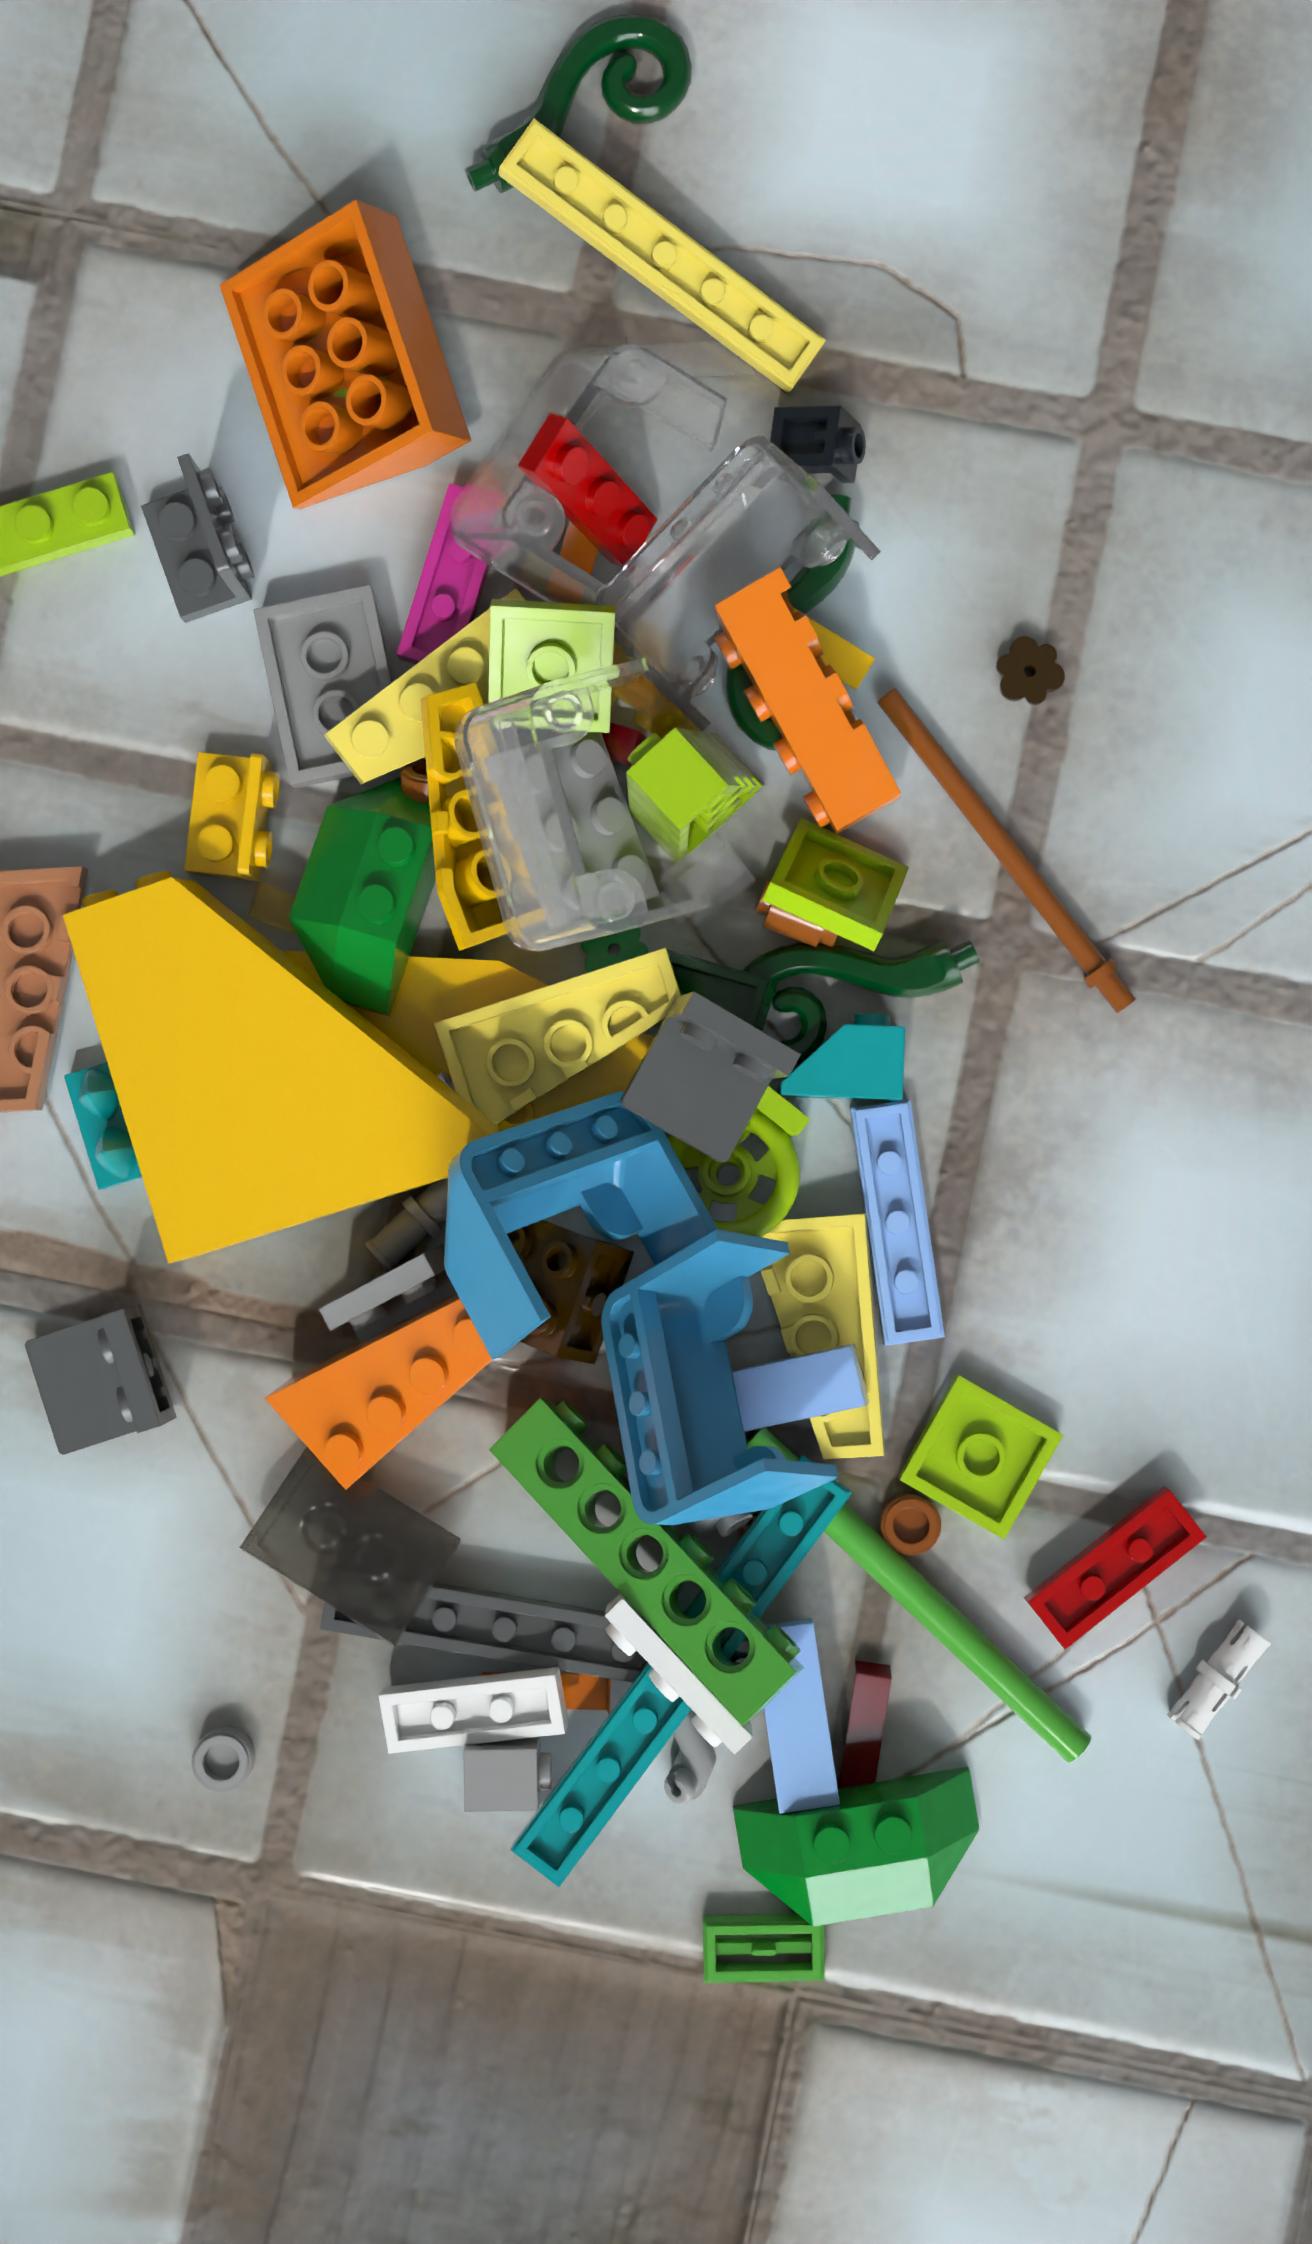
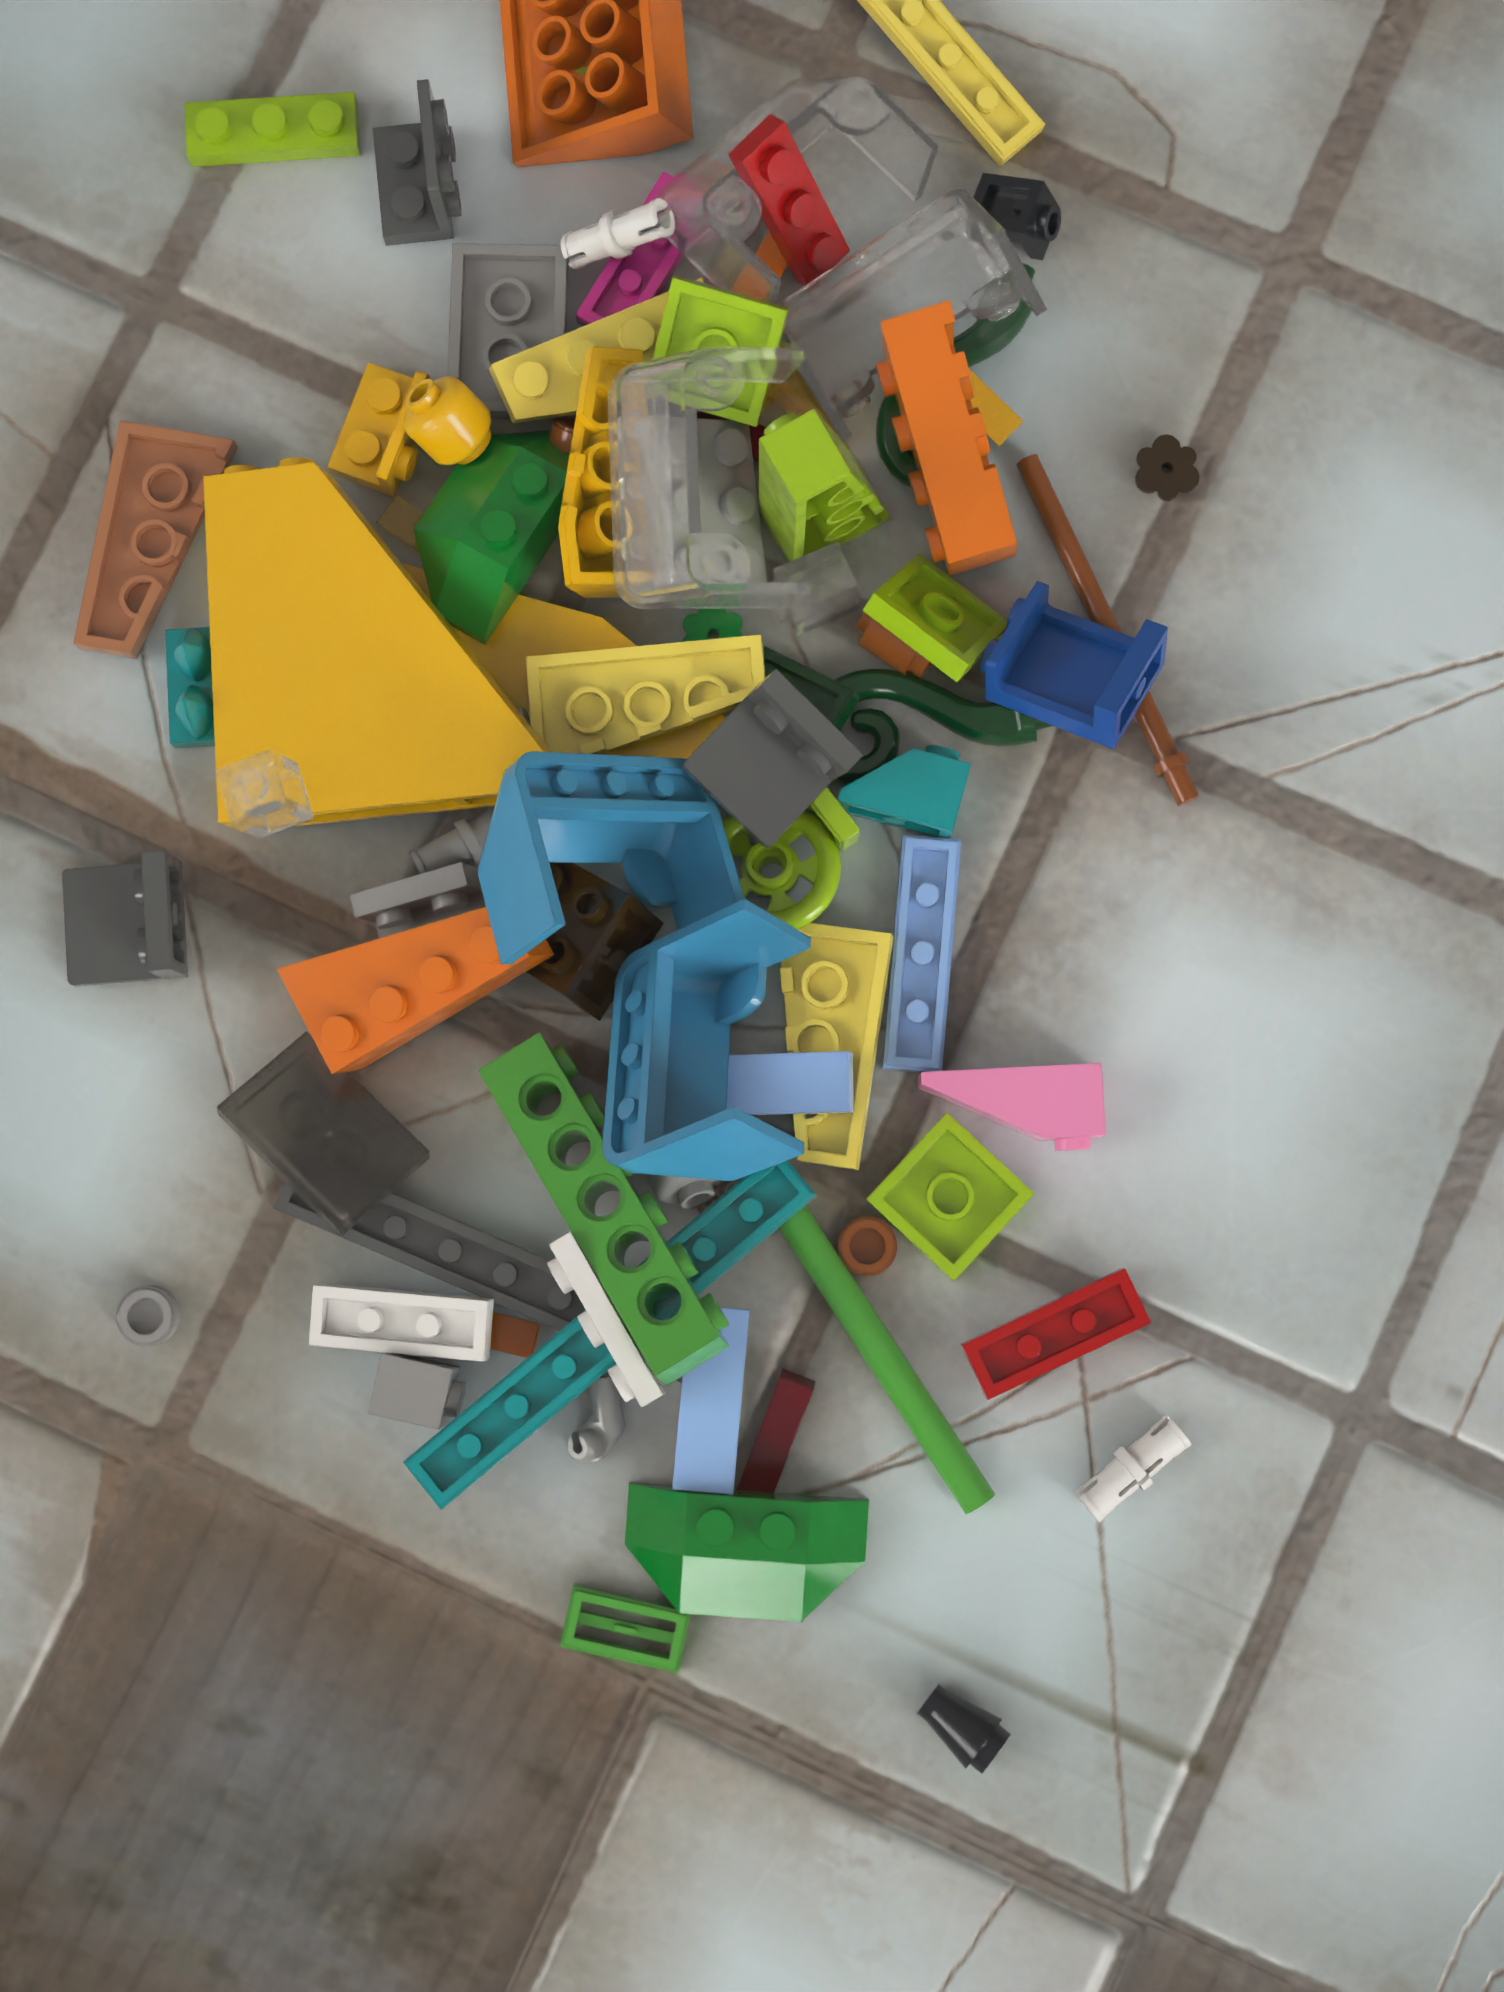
camera: 10 degrees right, 5 degrees down
(209, 1232) = (264, 794): none -> clear brick
(296, 801) = (447, 420): none -> yellow head
(420, 564) = (618, 233): none -> white pin
(983, 906) = (1071, 669): none -> blue panel
(1049, 1344) = (1037, 1101): none -> bright pink slope
(1114, 1968) = (964, 1728): none -> black cone

